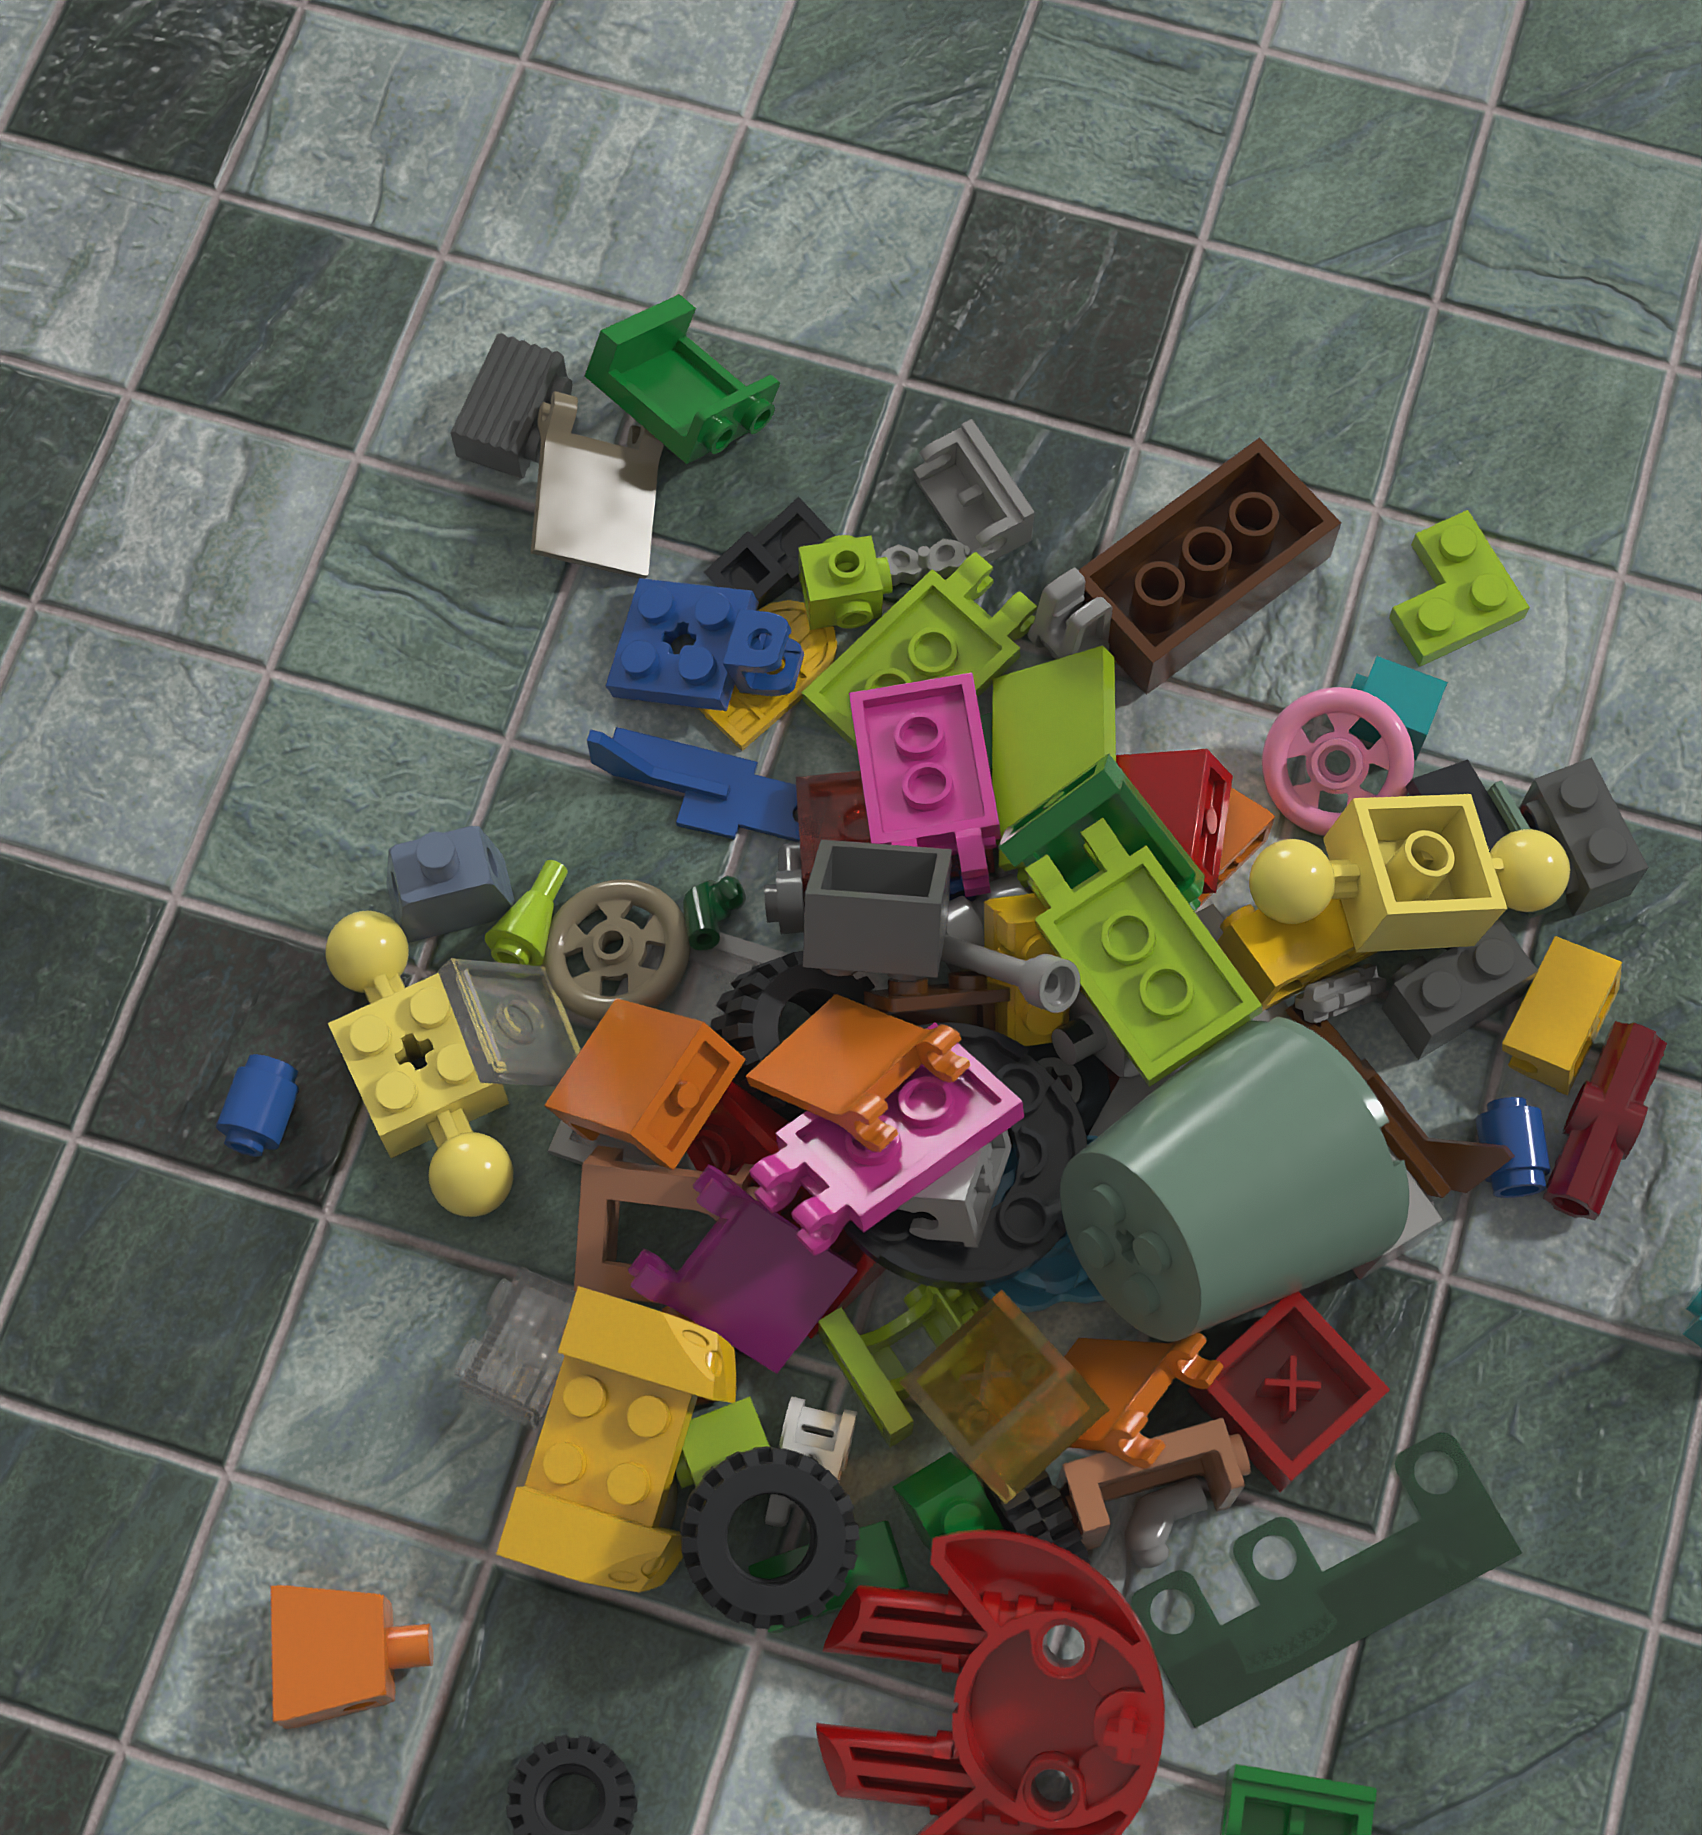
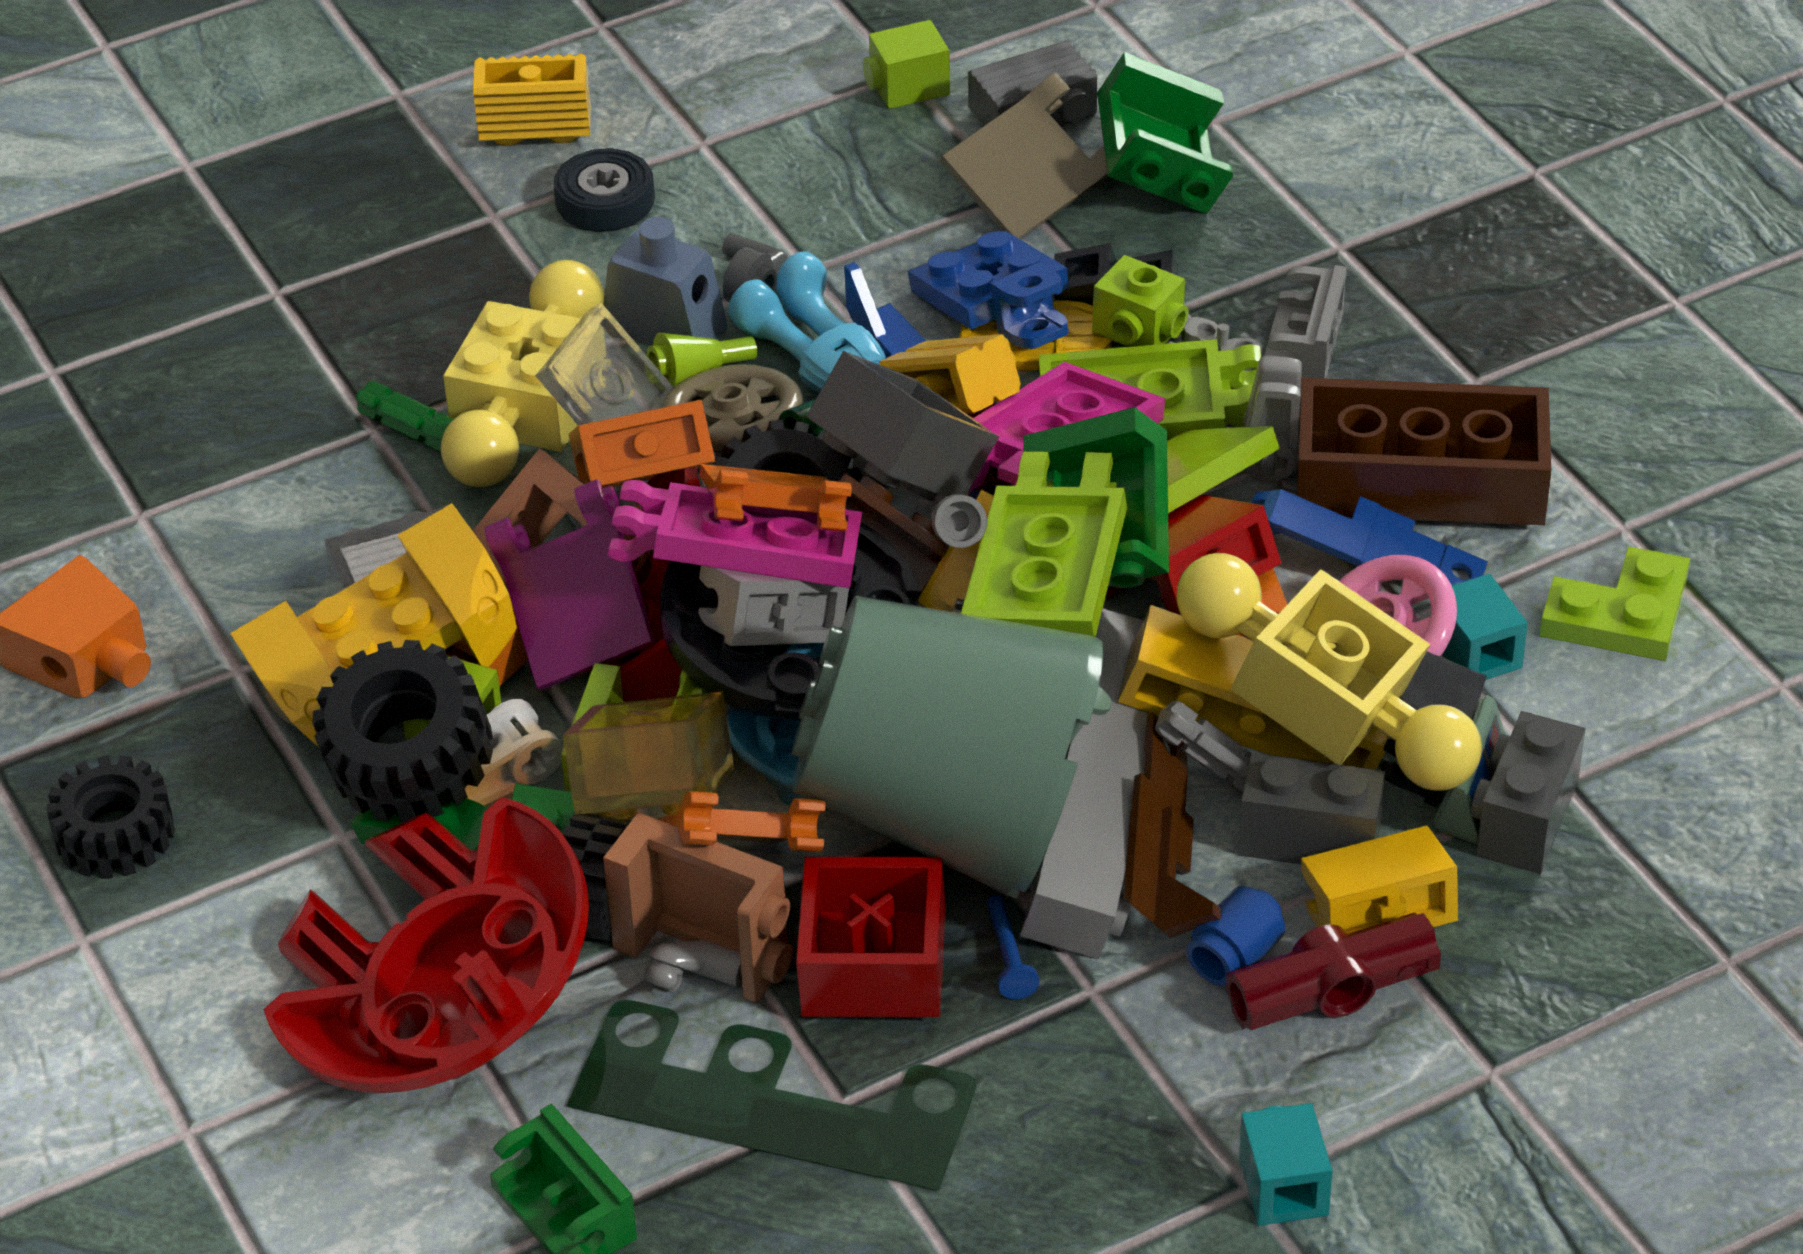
camera: 45 degrees right, 25 degrees down
(97, 753) = (532, 98): none -> yellow brick
(258, 1105) = (400, 335): blue brick -> none
(268, 819) = (604, 189): none -> black bush
(352, 1181) = (402, 414): none -> green axle
(373, 454) = (908, 64): none -> lime brick
(491, 797) = (750, 262): none -> dark grey plate
(665, 831) = (800, 293): none -> medium azure piece
(794, 791) = (962, 370): none -> yellow brick
(1243, 685) = (1365, 536): none -> blue piece
(1372, 1304) = (1017, 979): none -> blue pin

